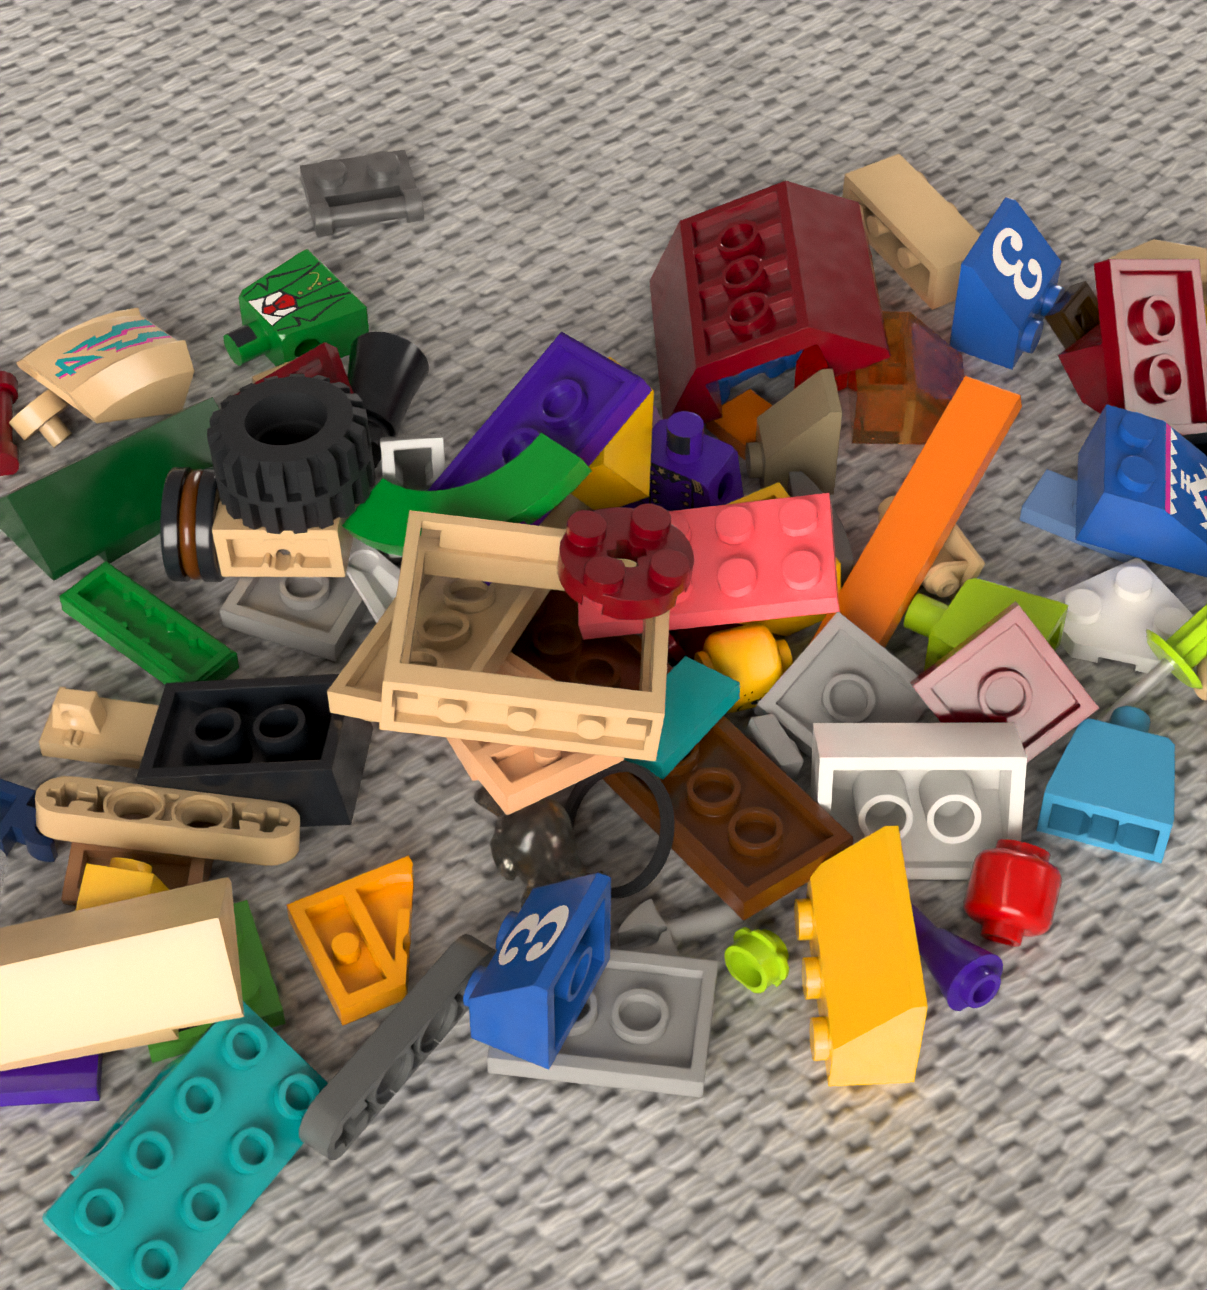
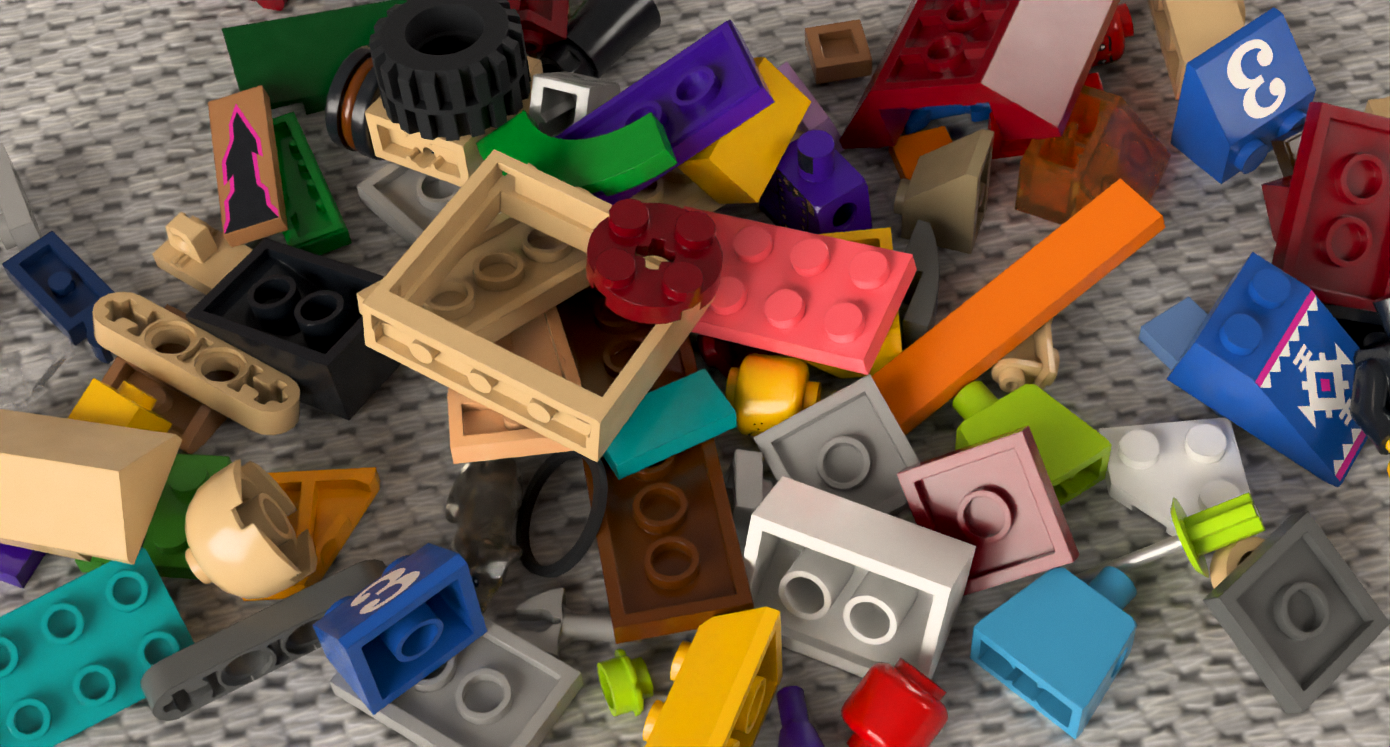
camera: 30 degrees right, 5 degrees up
(98, 624) = (247, 166): none -> tile
(339, 952) = (243, 534): none -> tan cylinder
(619, 342) = (838, 51): none -> medium nougat plate

